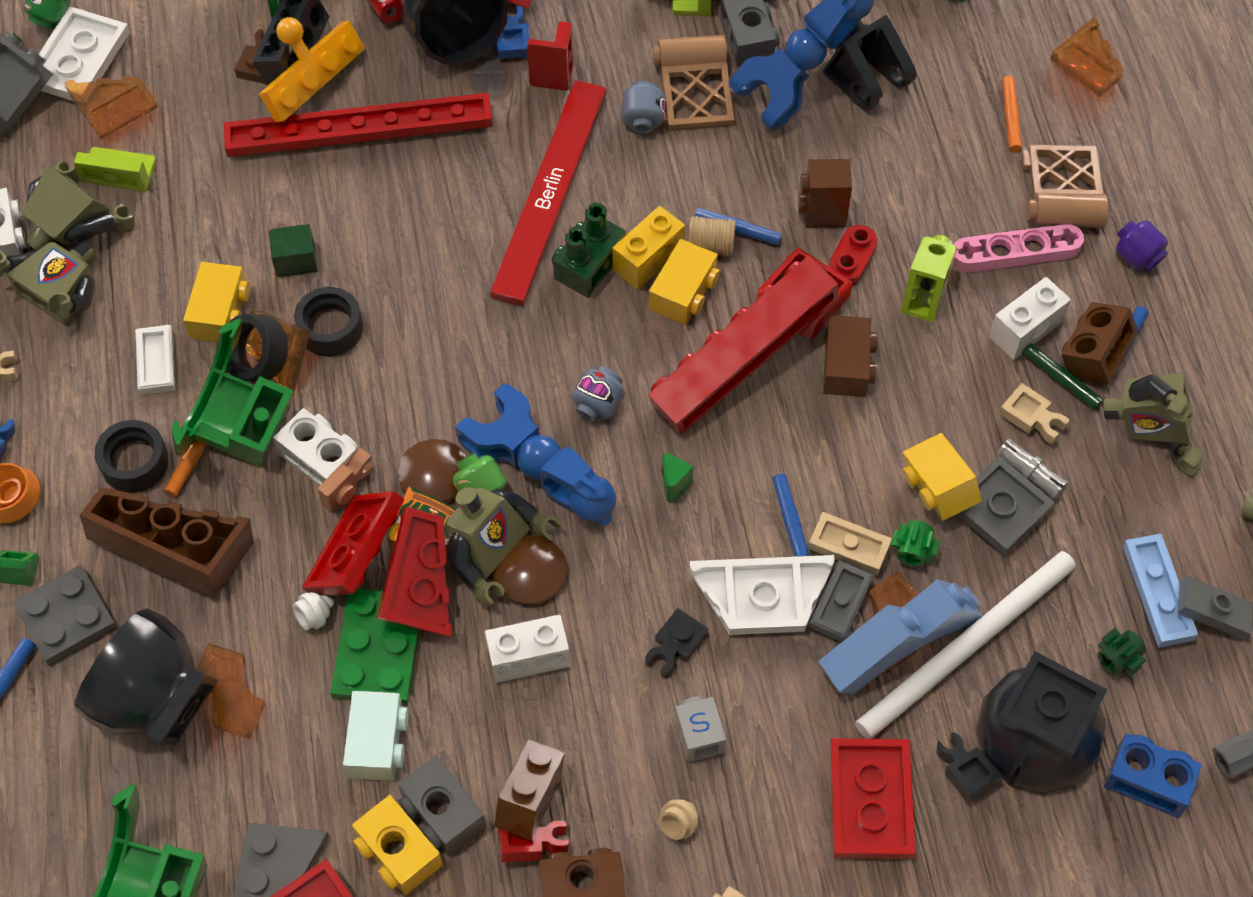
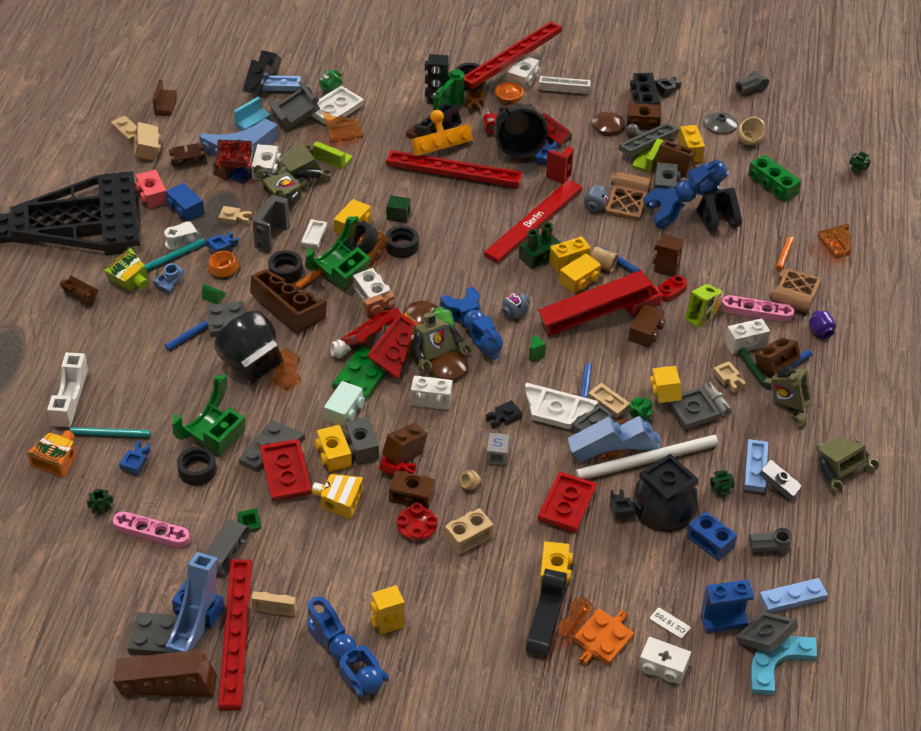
camera: 20 degrees right, 15 degrees down
(63, 346) = (272, 215): none -> dark grey panel

